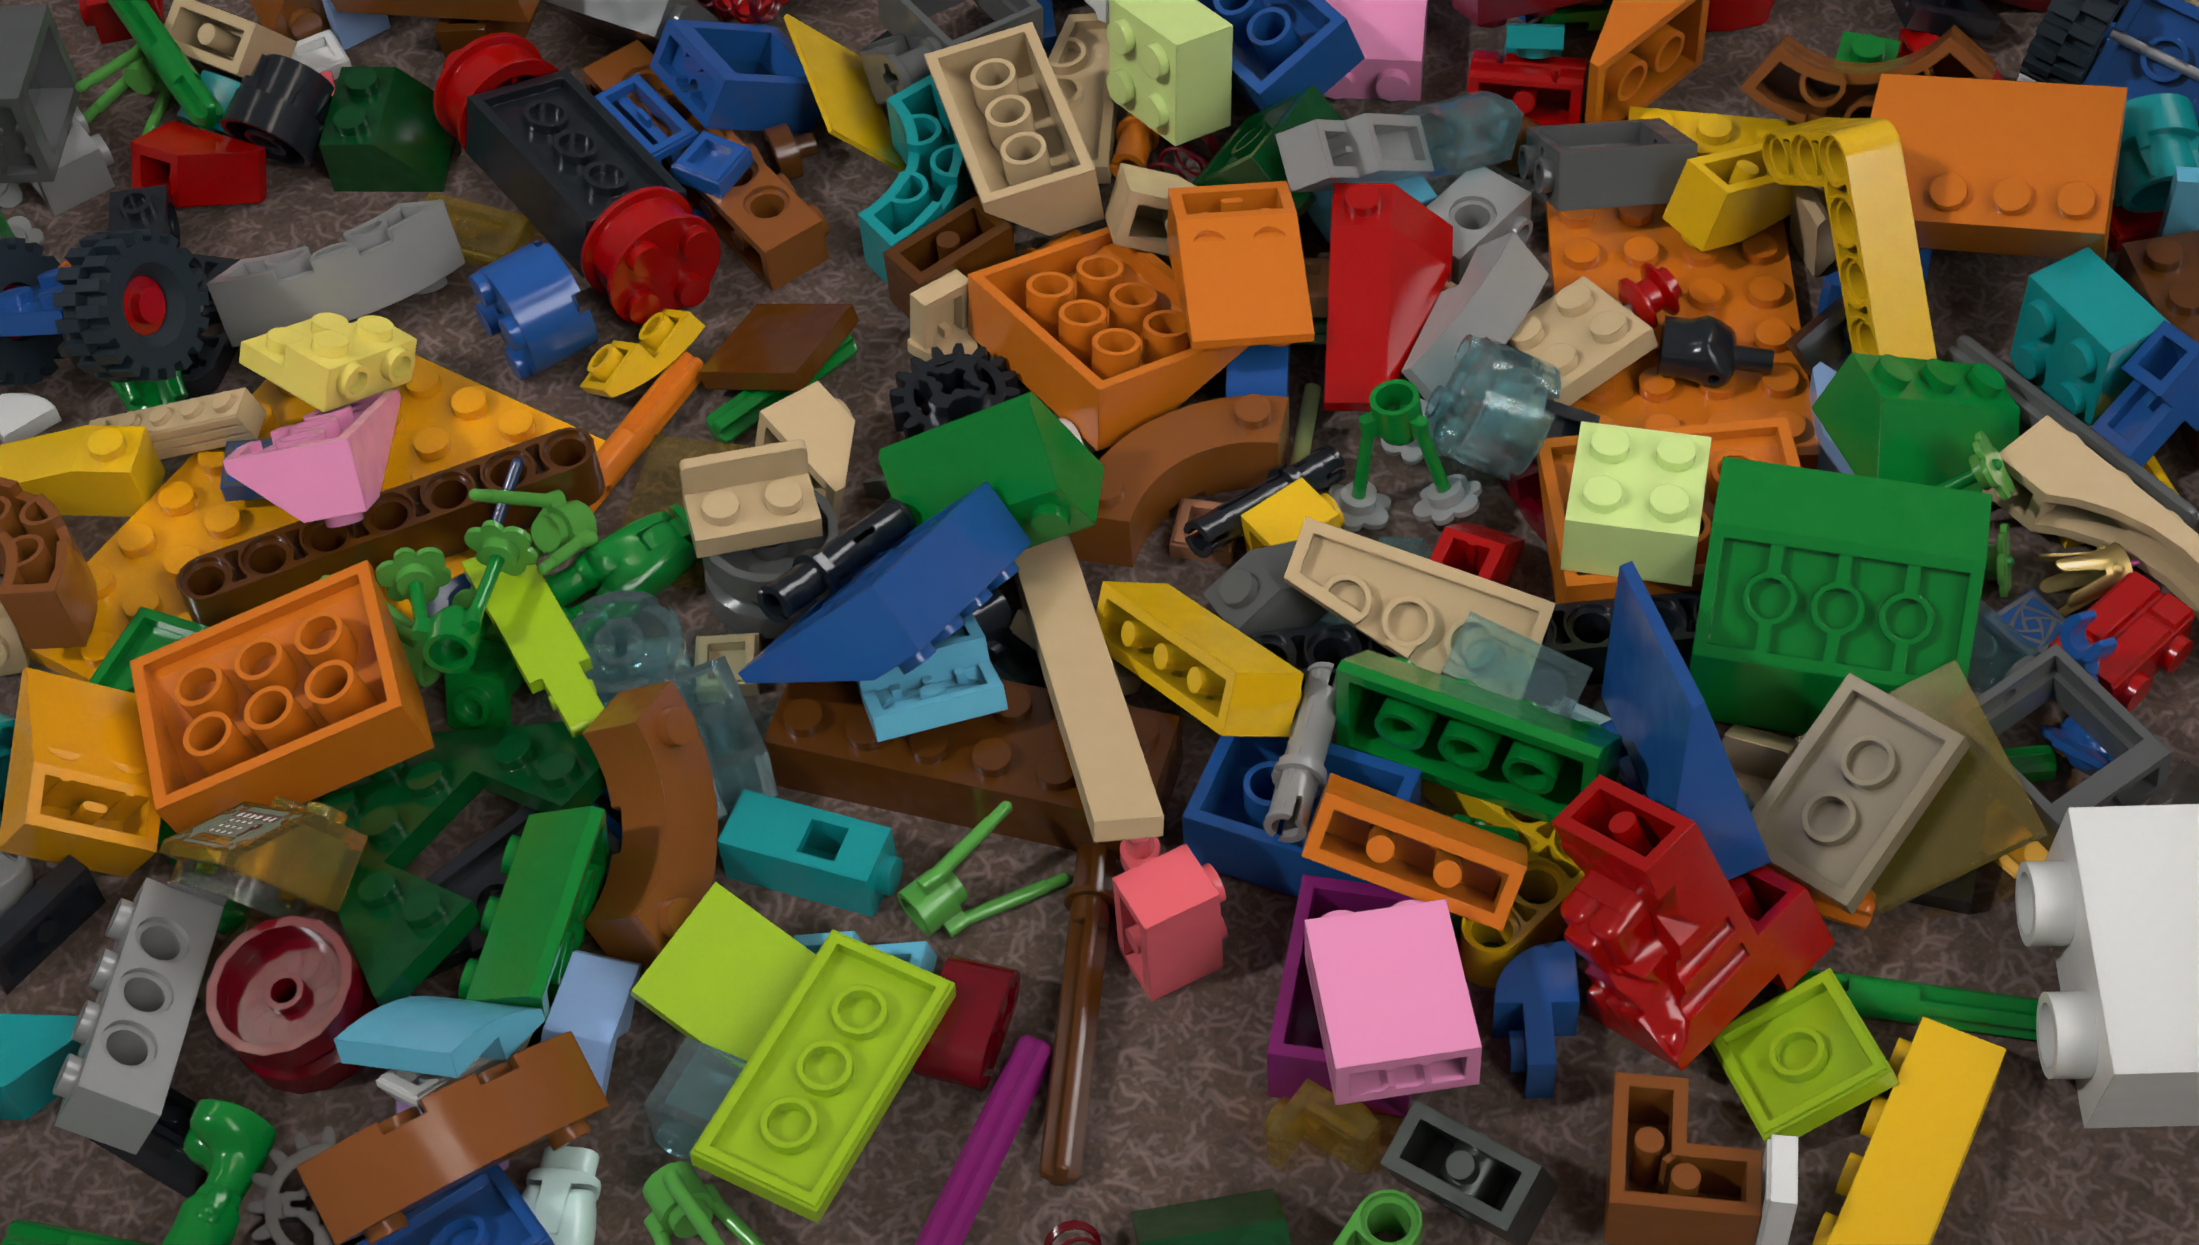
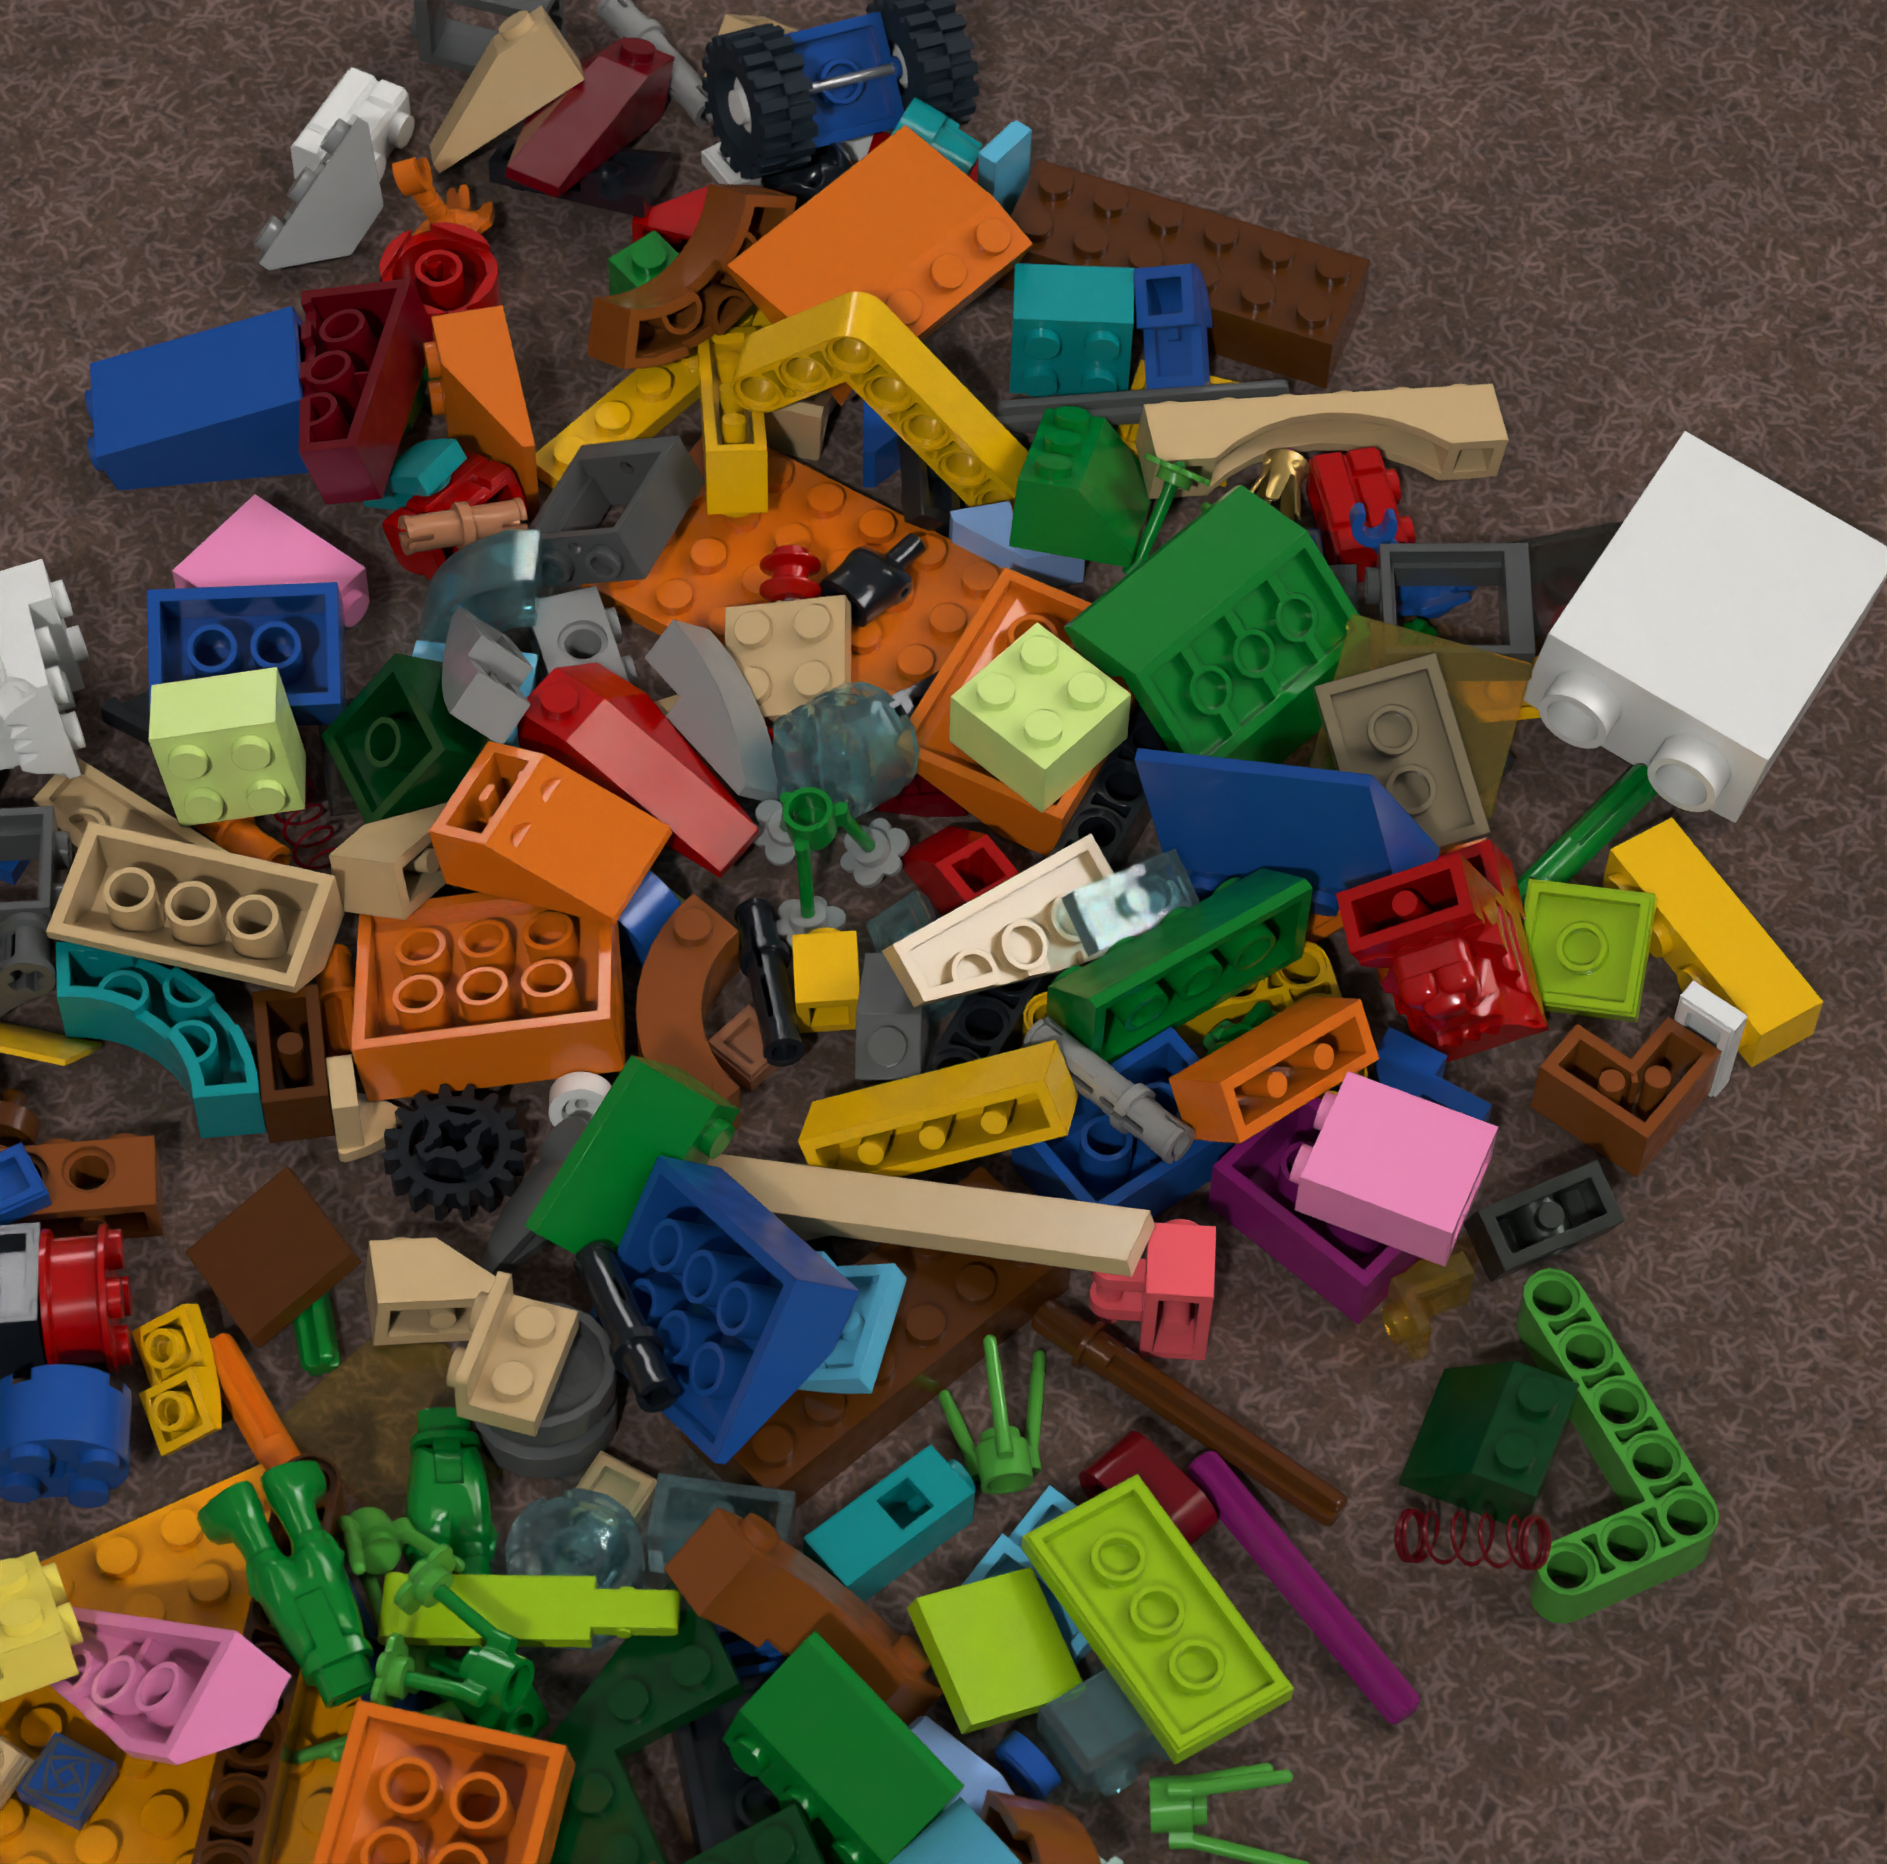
camera: 65 degrees left, 5 degrees up
(435, 498) = (304, 1593): none -> green piece
(644, 1065) = (1027, 1765): none -> blue tile
(1496, 77) = (459, 525): none -> nougat pin

